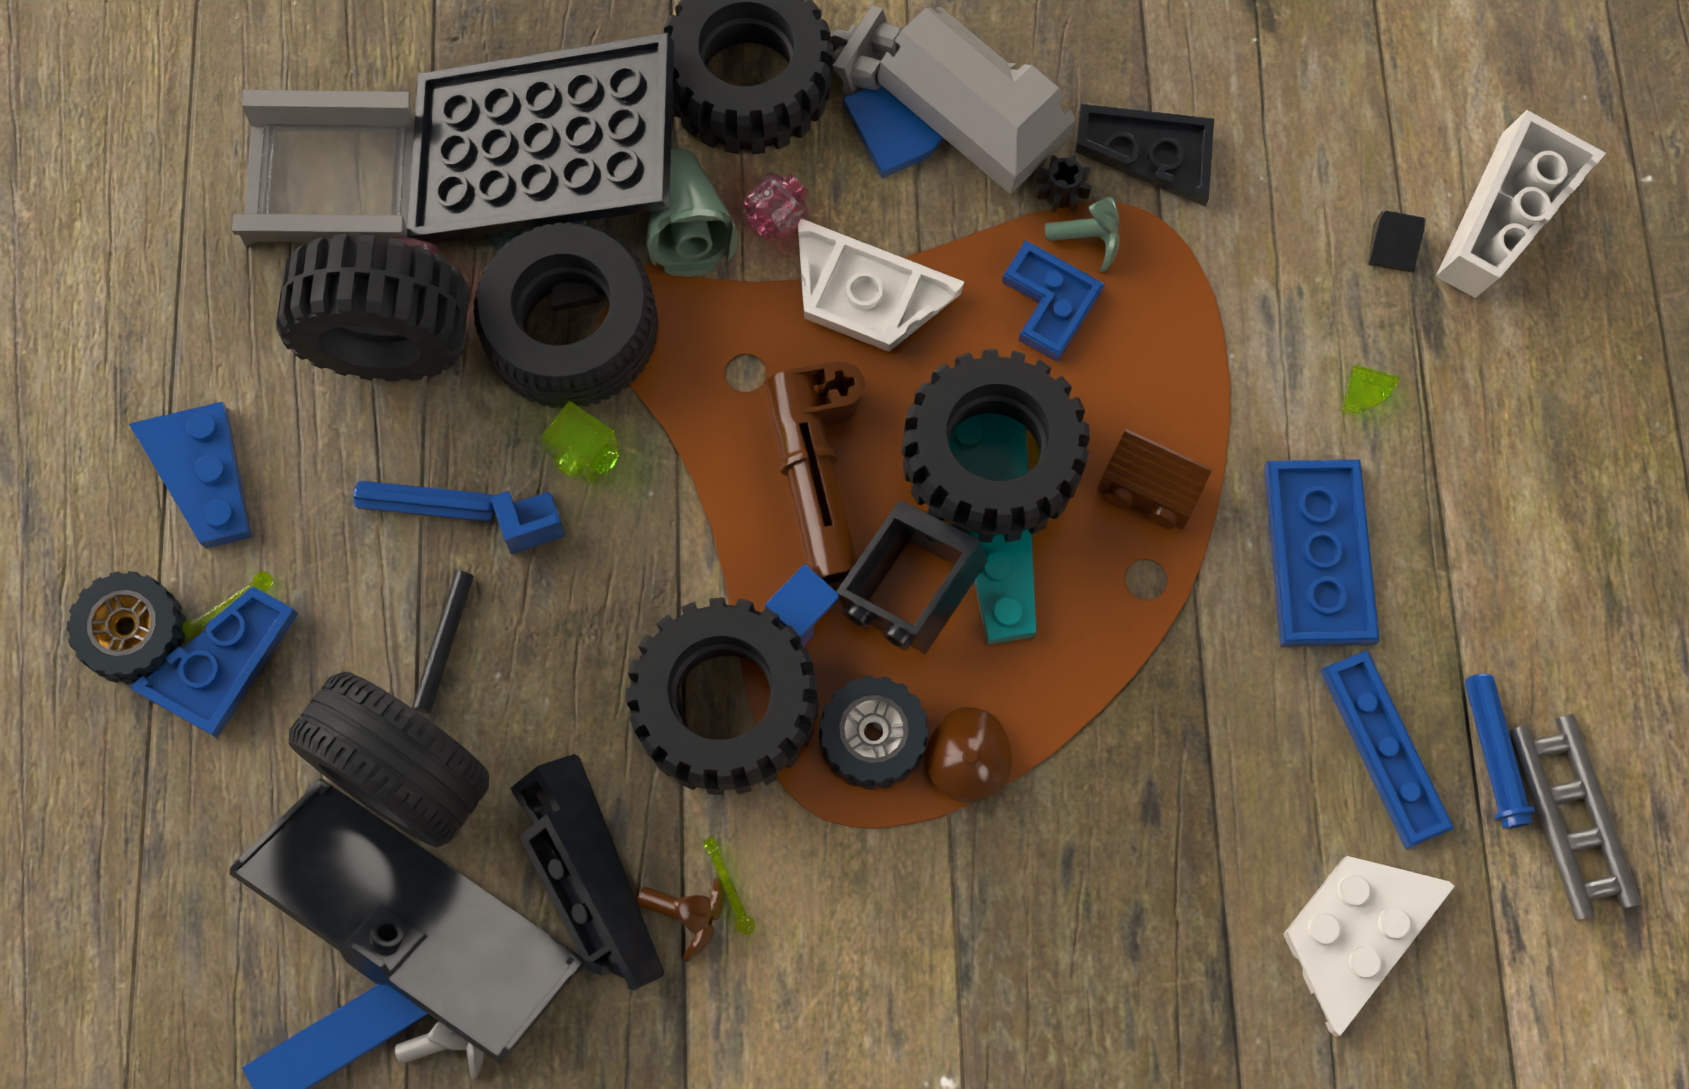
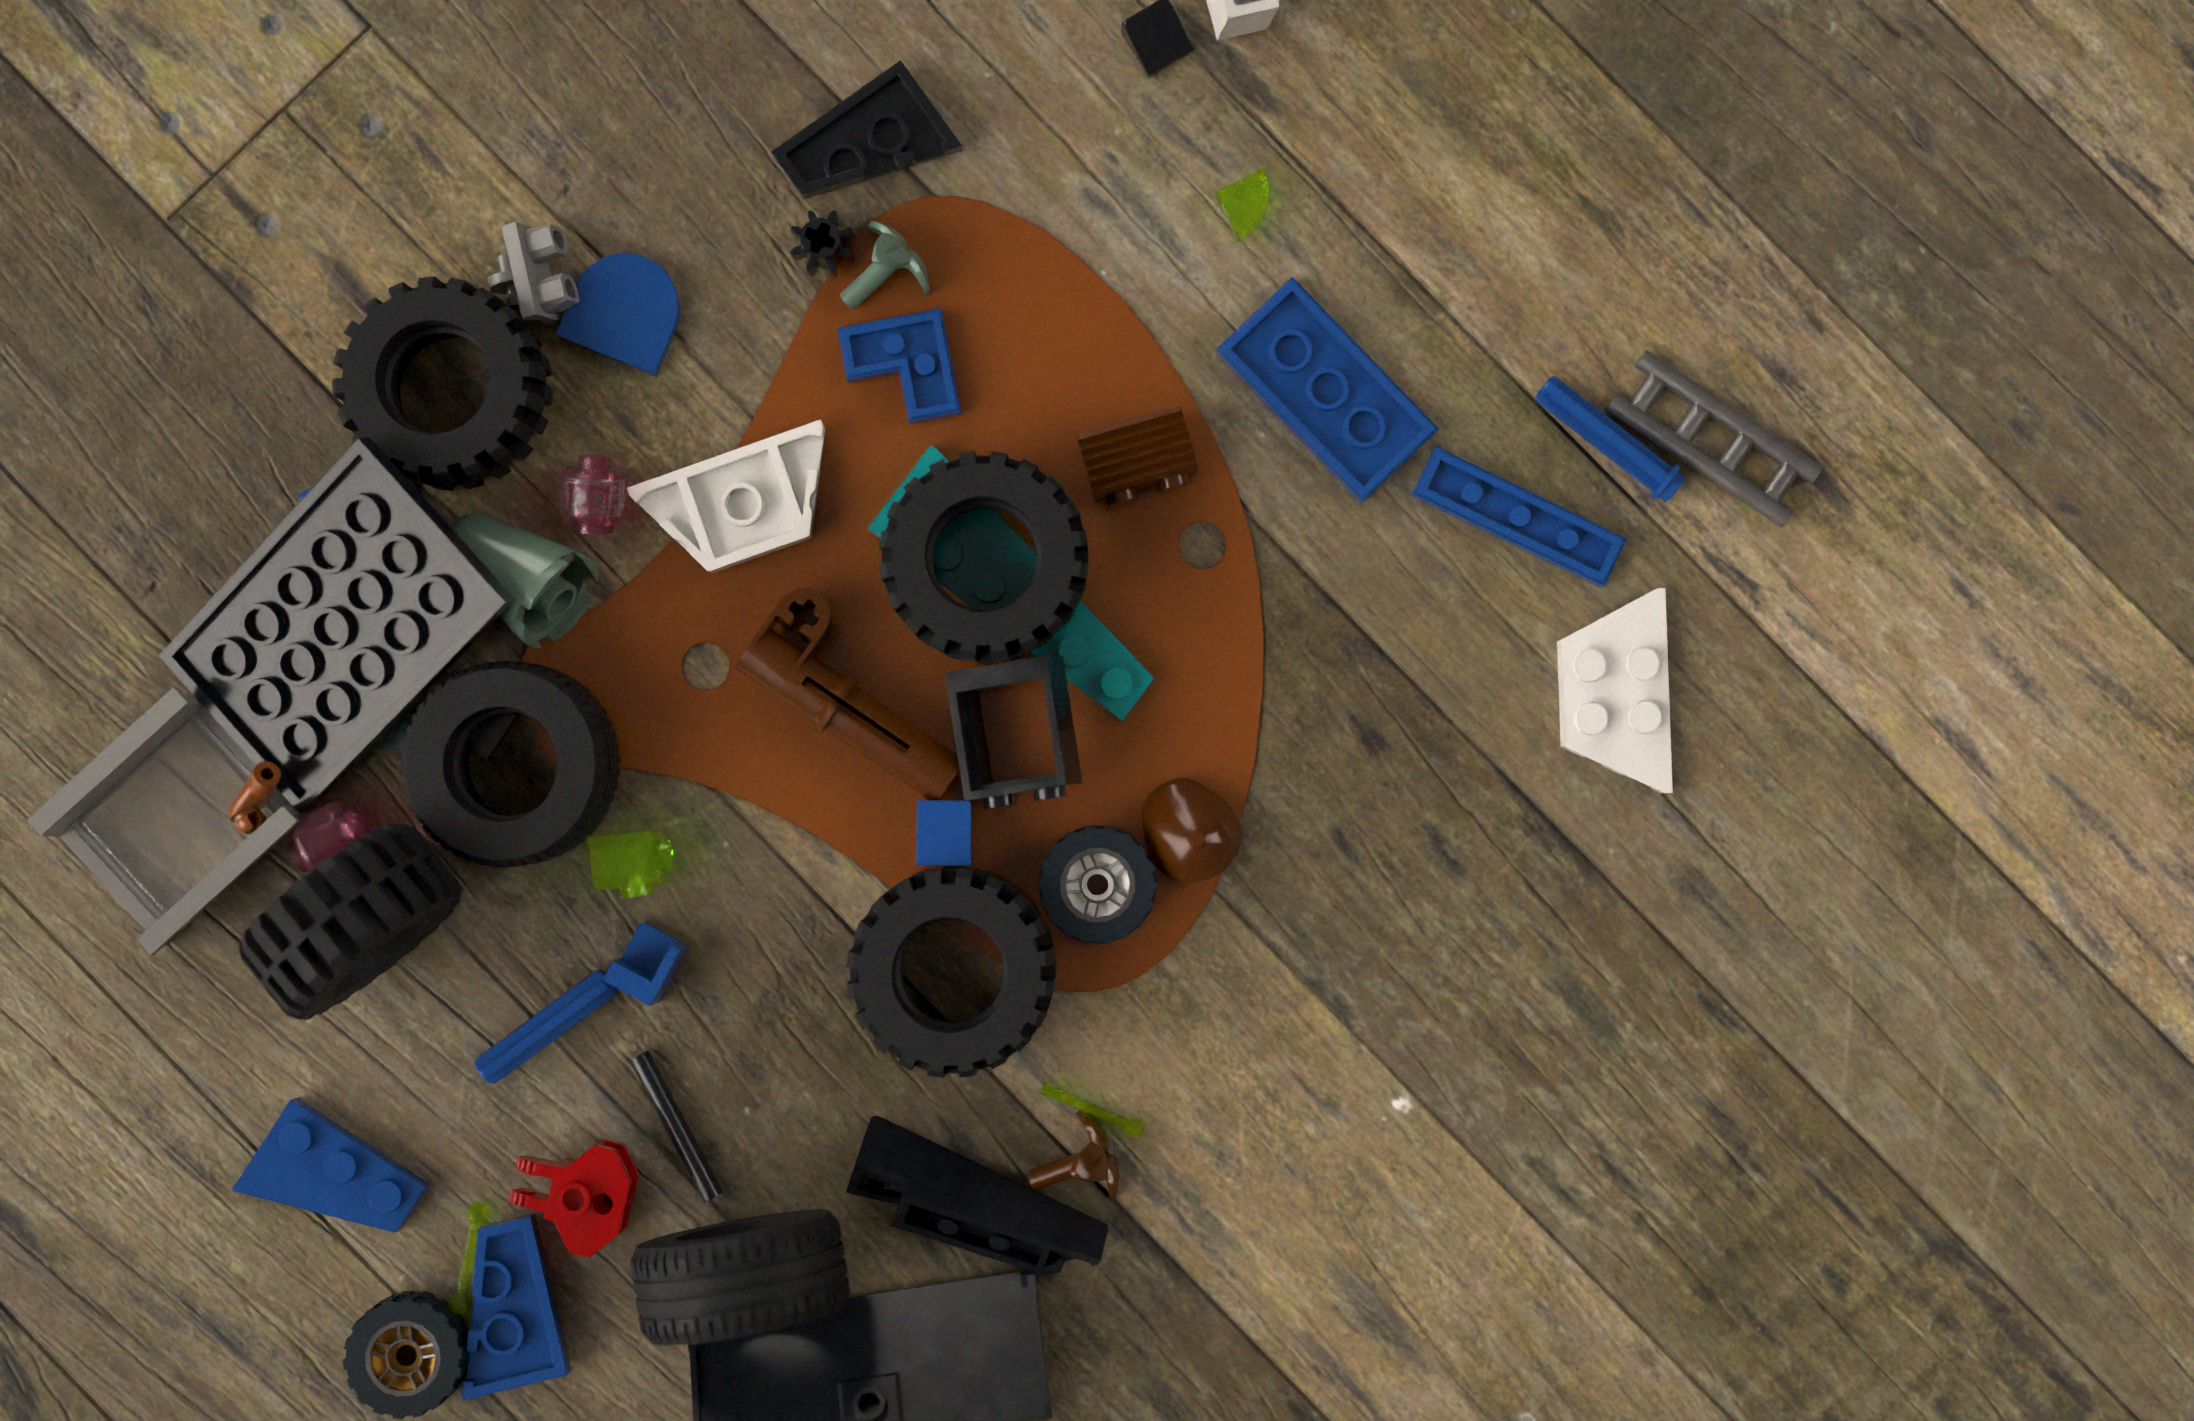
camera: 40 degrees left, 15 degrees up
(342, 627) = (578, 1192): none -> red hinge
(392, 199) = (253, 797): none -> dark orange arm
(976, 99) = (676, 238): light grey brick -> none

